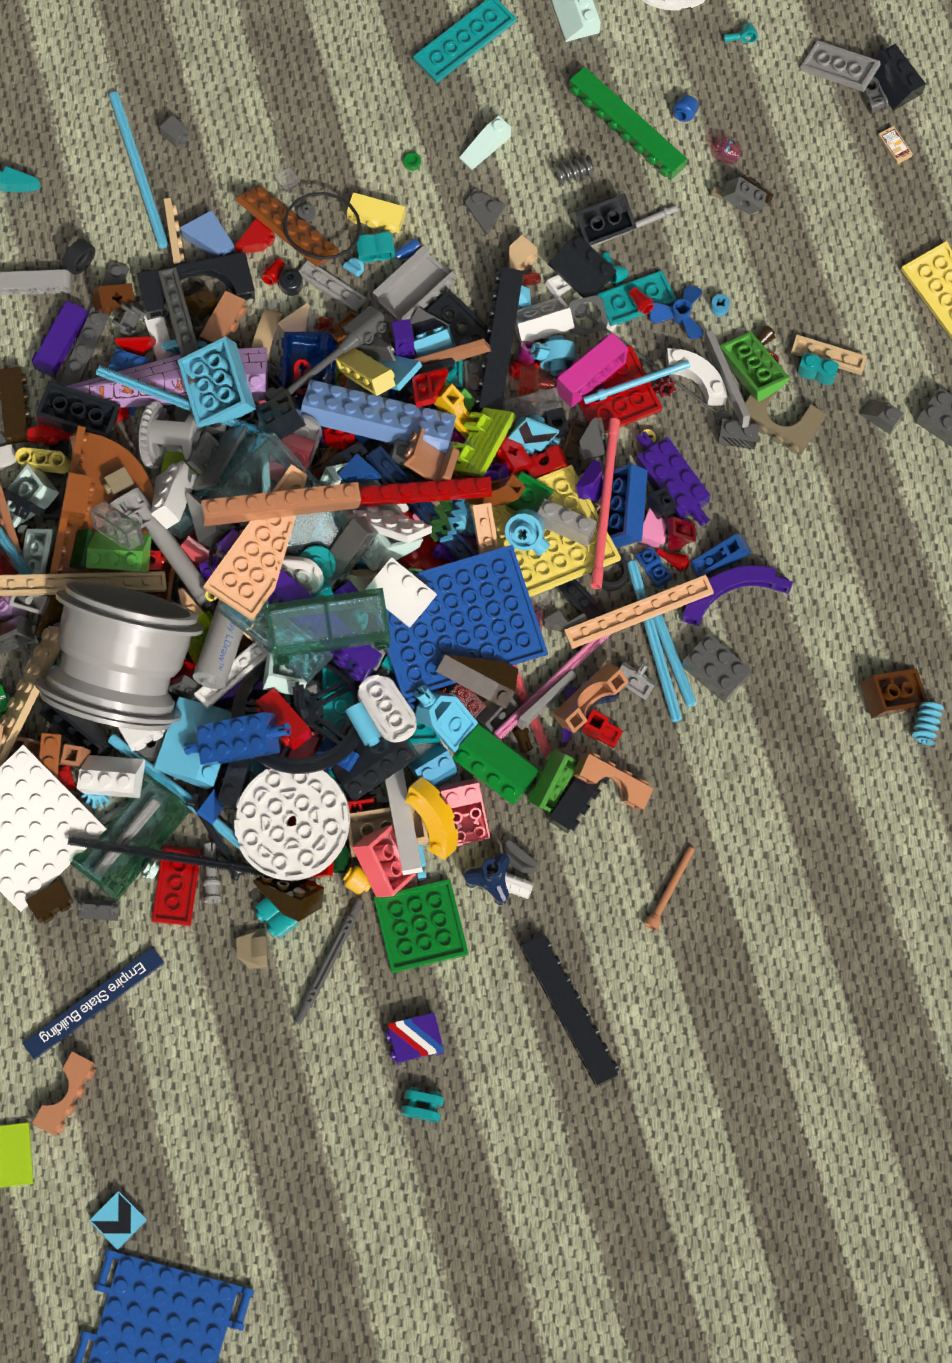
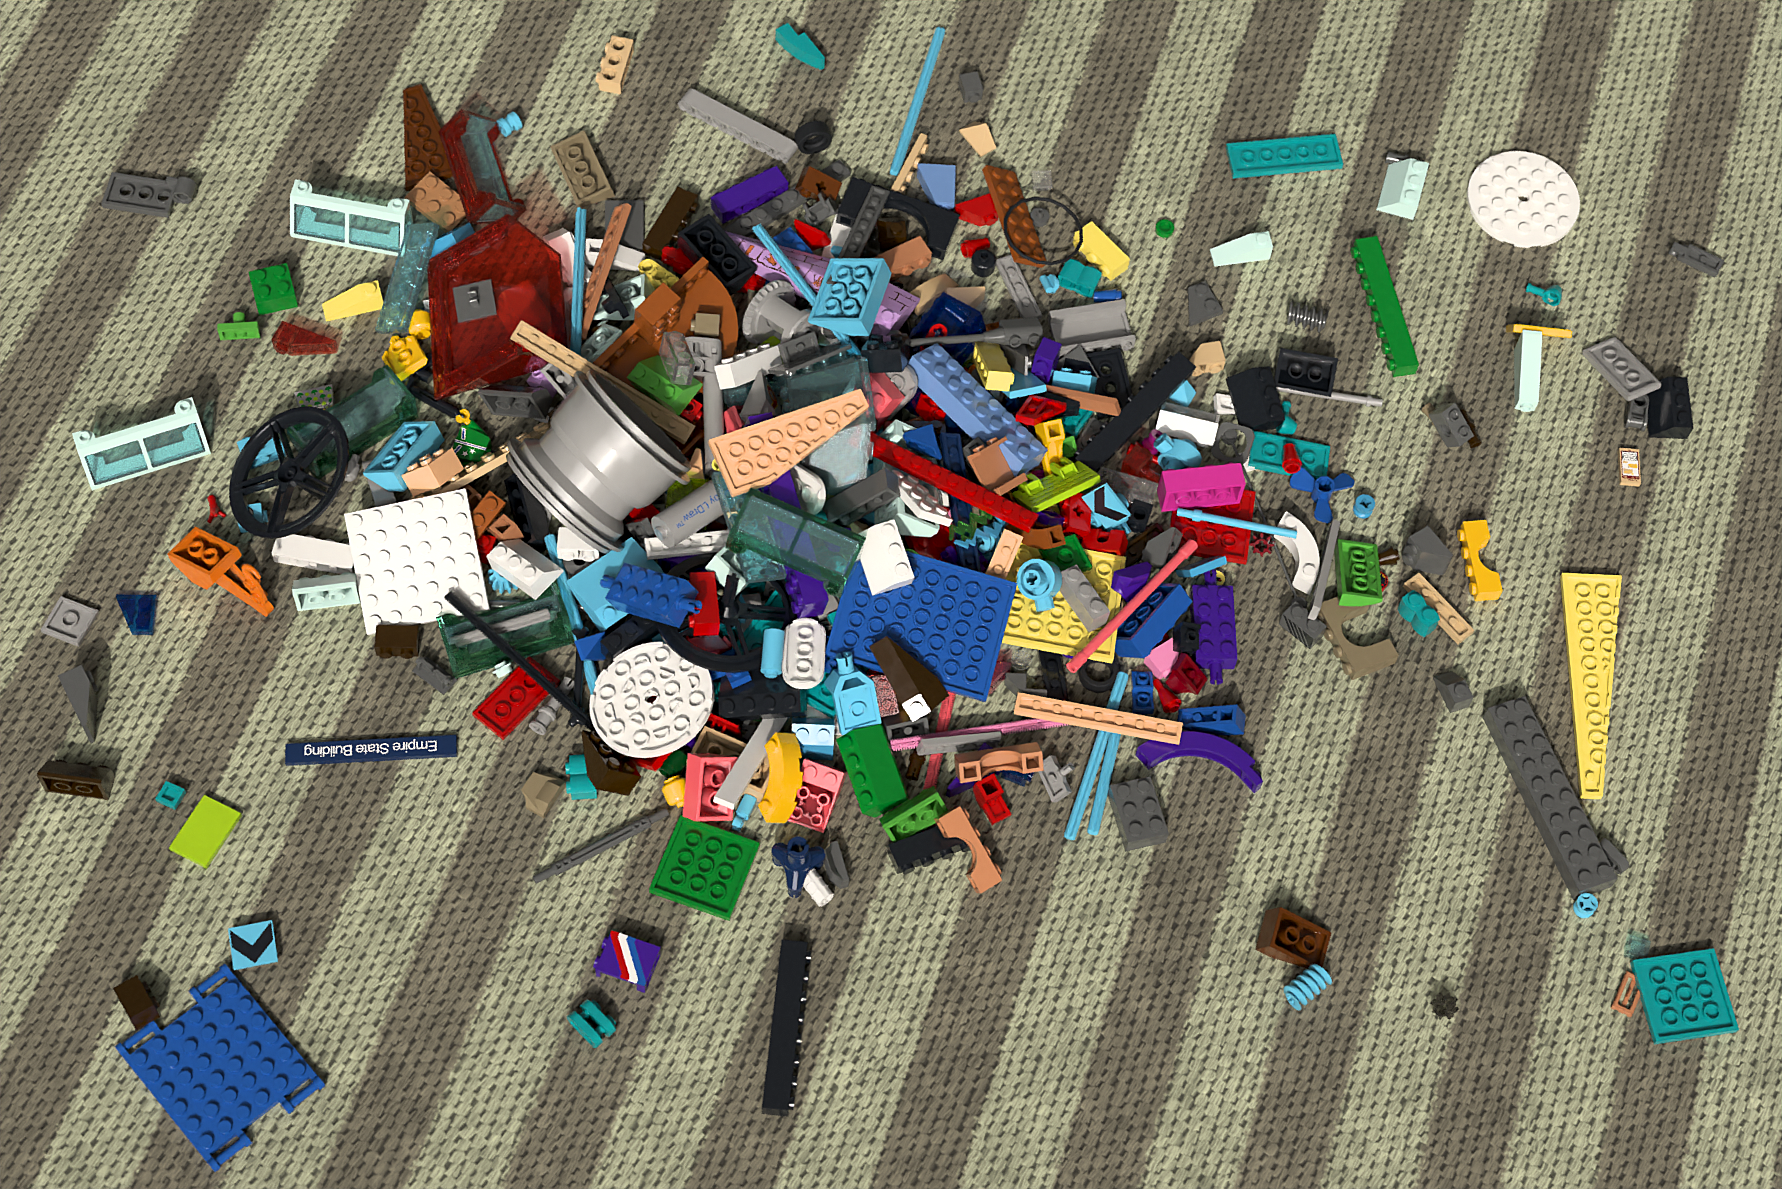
camera: 30 degrees right, 10 degrees down
(52, 1117) = (265, 821): nougat arch -> none
(61, 1326) = (136, 1001): none -> dark brown brick
(80, 547) = (643, 353): dark green slope -> none
(210, 172) = (979, 137): none -> tan slope
(280, 504) = (825, 412): nougat brick -> none
(323, 558) = (836, 492): teal tile -> none
(325, 324) = (990, 315): clear red plant -> none
(531, 279) = (1203, 384): clear red tile -> none
(633, 435) = (1201, 566): none -> dark azure tile
(653, 920) = (920, 998): nougat piece -> none
(685, 108) = (1448, 323): blue head -> none
(728, 151) = (1463, 381): clear pink head -> none
(759, 72) = (1548, 332): none -> yellow tile
(771, 111) = (1527, 370): none -> light aqua slope
(794, 315) = (1426, 552): none -> dark grey slope
(849, 311) = (1483, 582): none -> yellow arch

